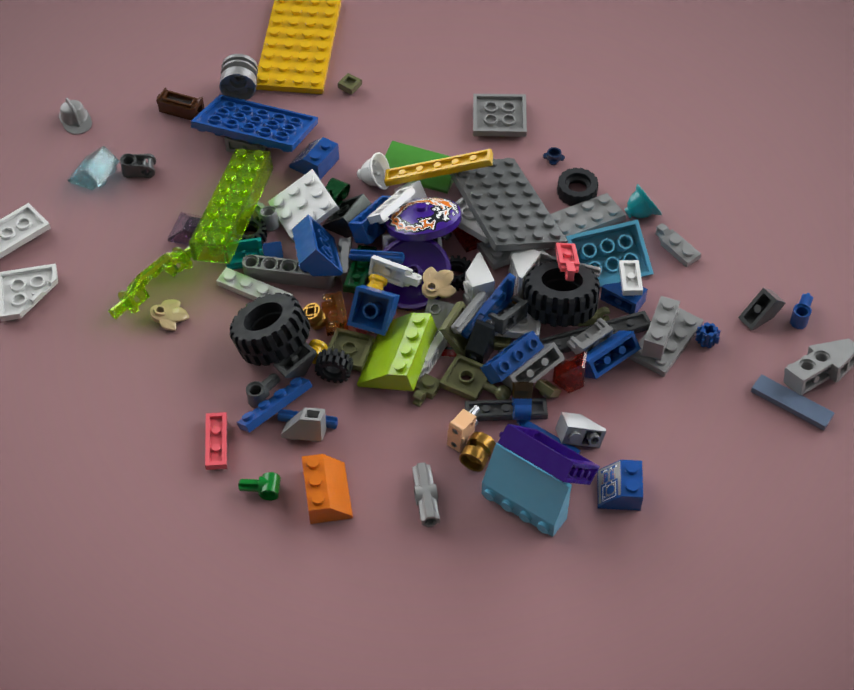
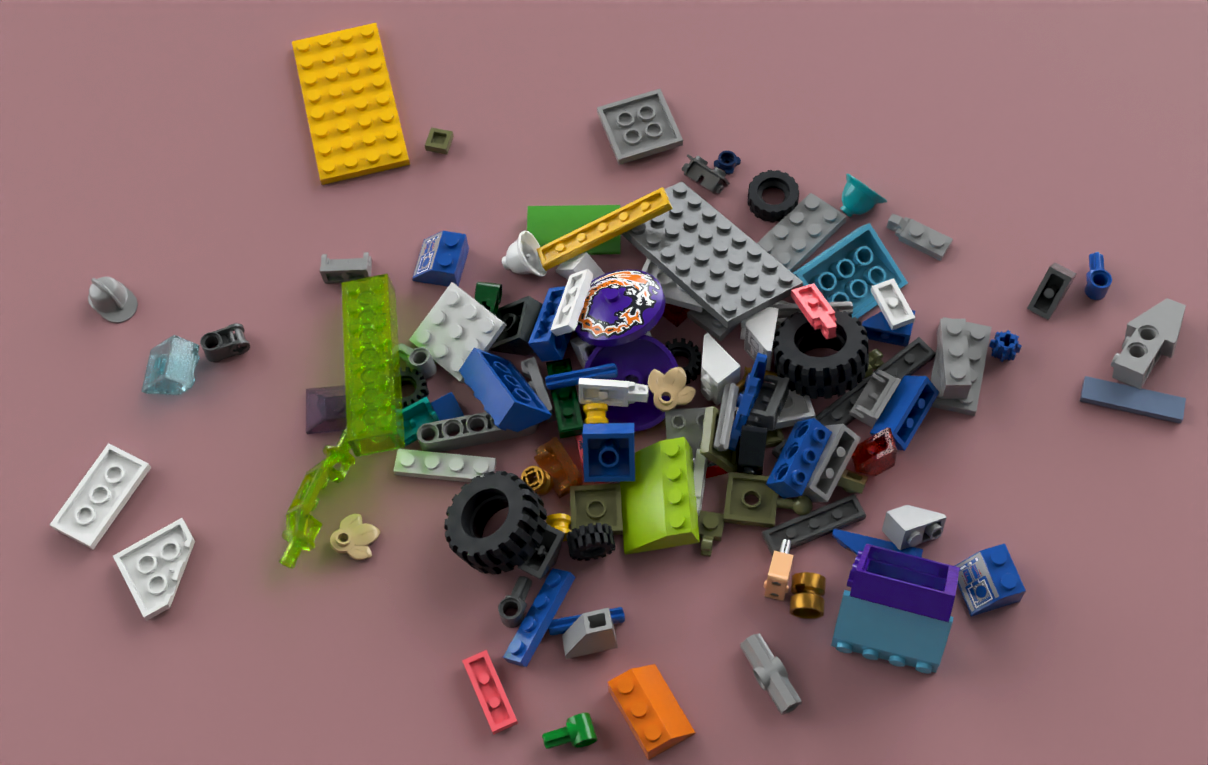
camera: 15 degrees left, 10 degrees up
(179, 104) = (240, 239): reddish brown window -> none
(238, 76) = (300, 178): light grey wheel -> none
(254, 123) = (348, 237): blue plate -> none
(522, 400) = (834, 511): leg -> none
(538, 163) = (713, 178): none -> dark grey hinge

